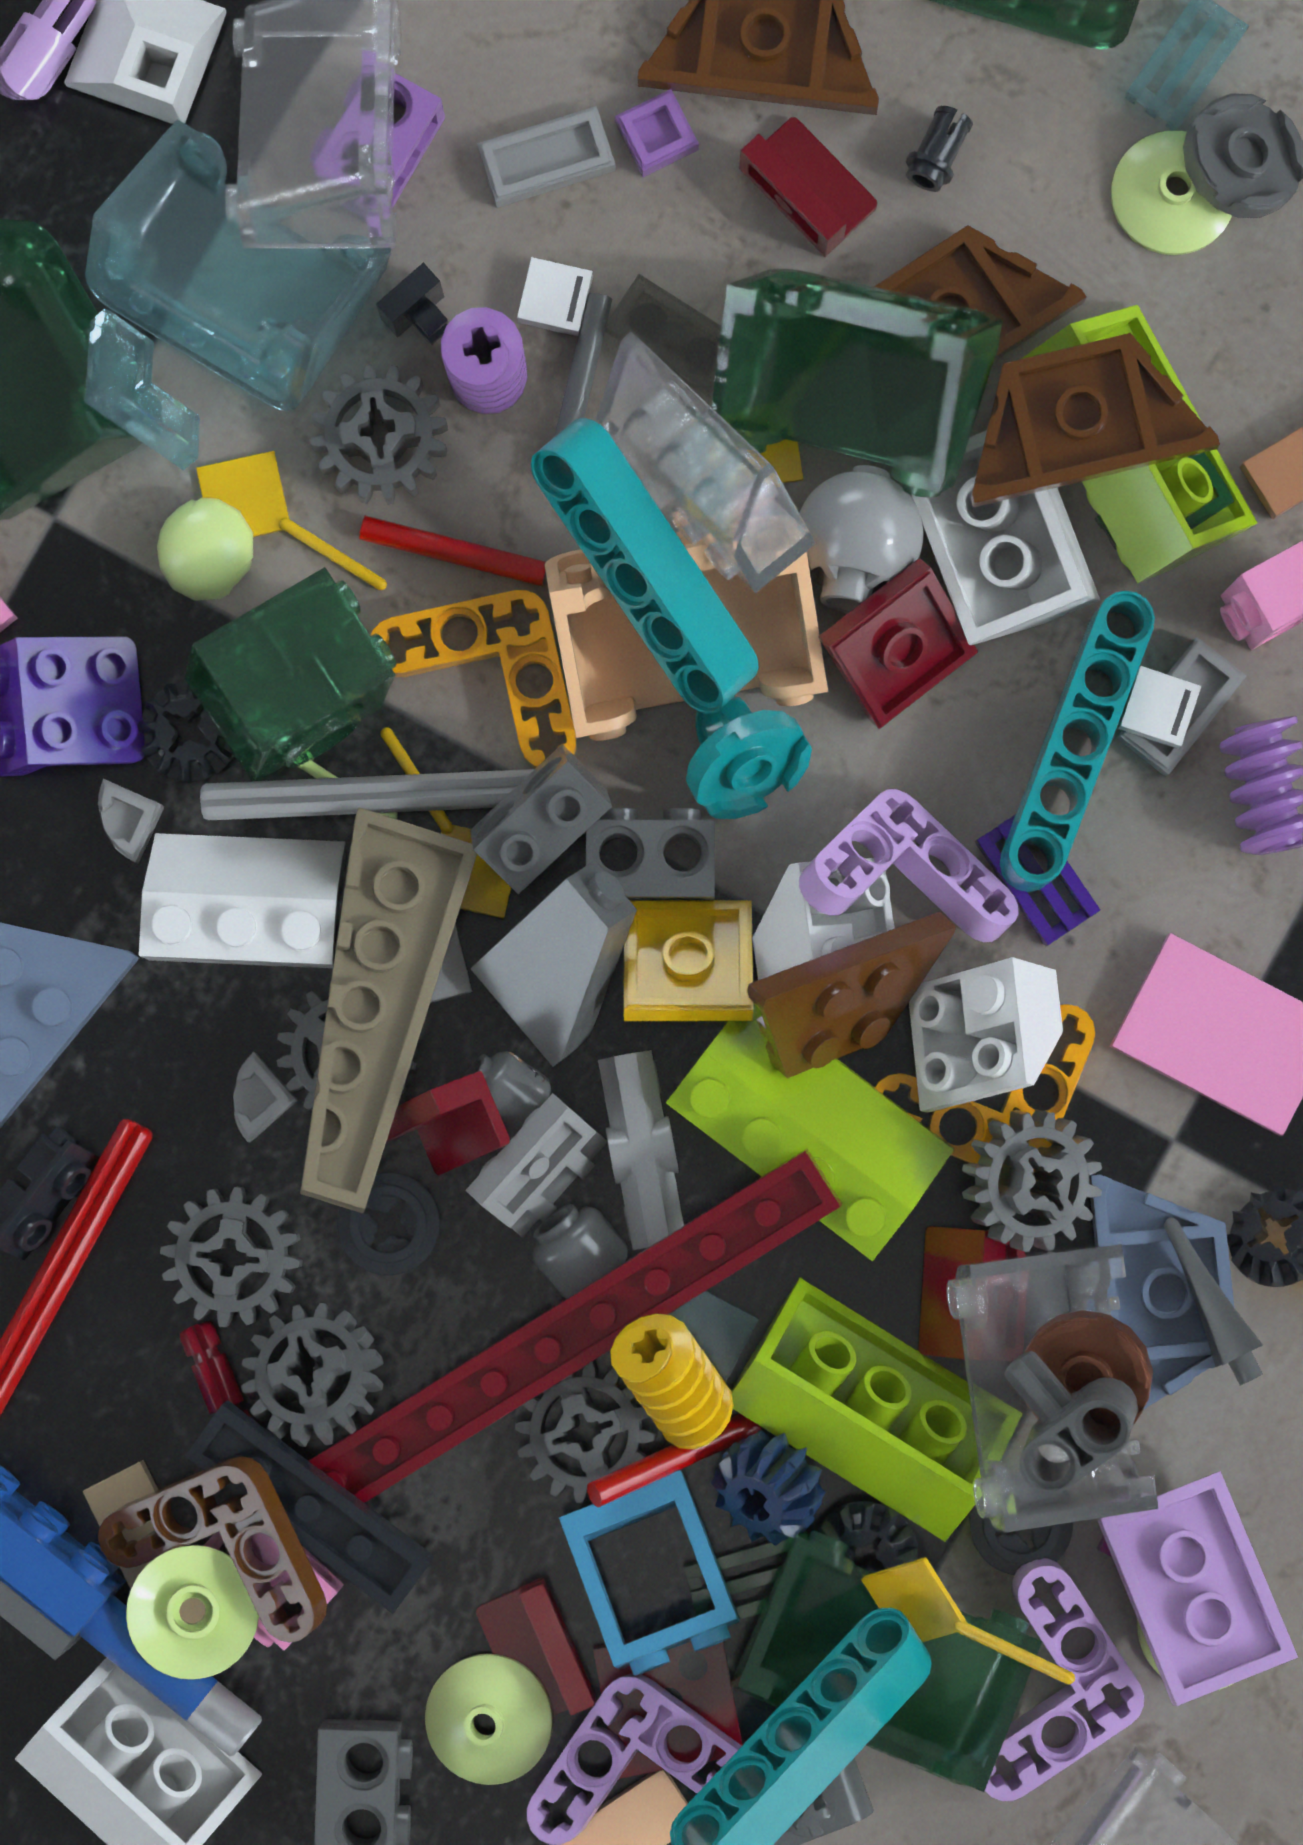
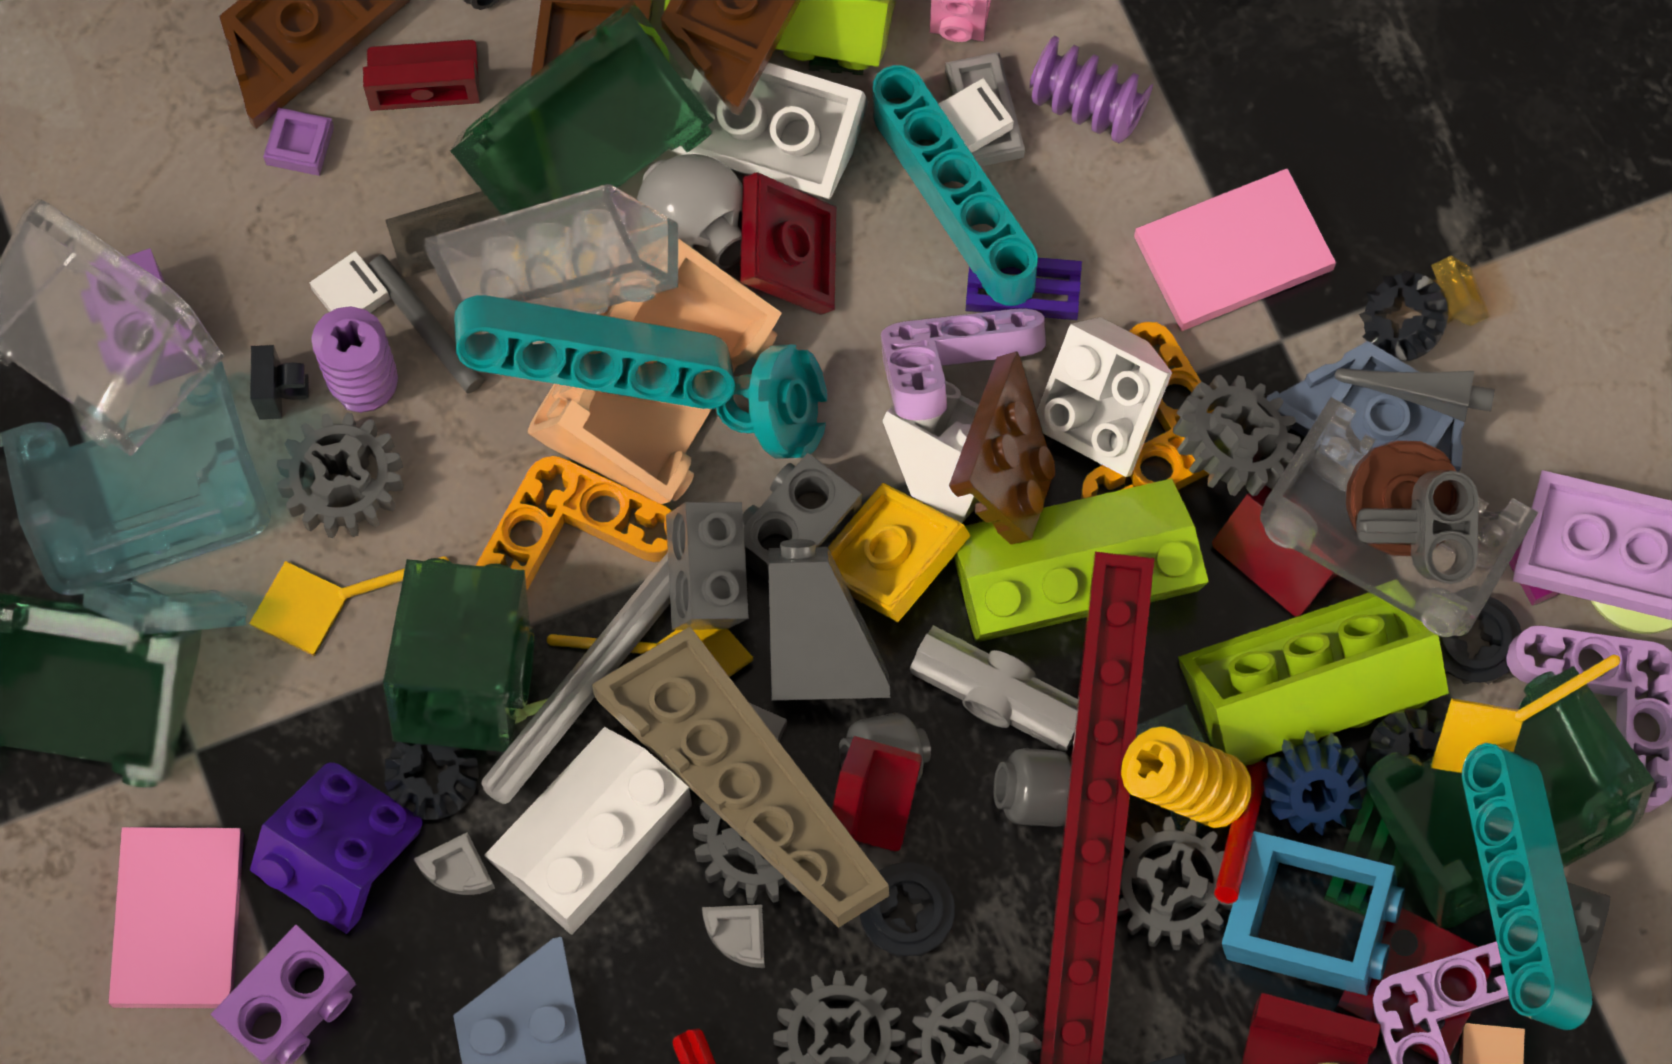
camera: 55 degrees left, 15 degrees down
(205, 548) = (312, 659): yellowish green hair -> none
(453, 550) = (464, 493): red bar -> none
(537, 1166) = (952, 762): light grey plate -> none
(546, 157) = (249, 223): light grey tile -> none

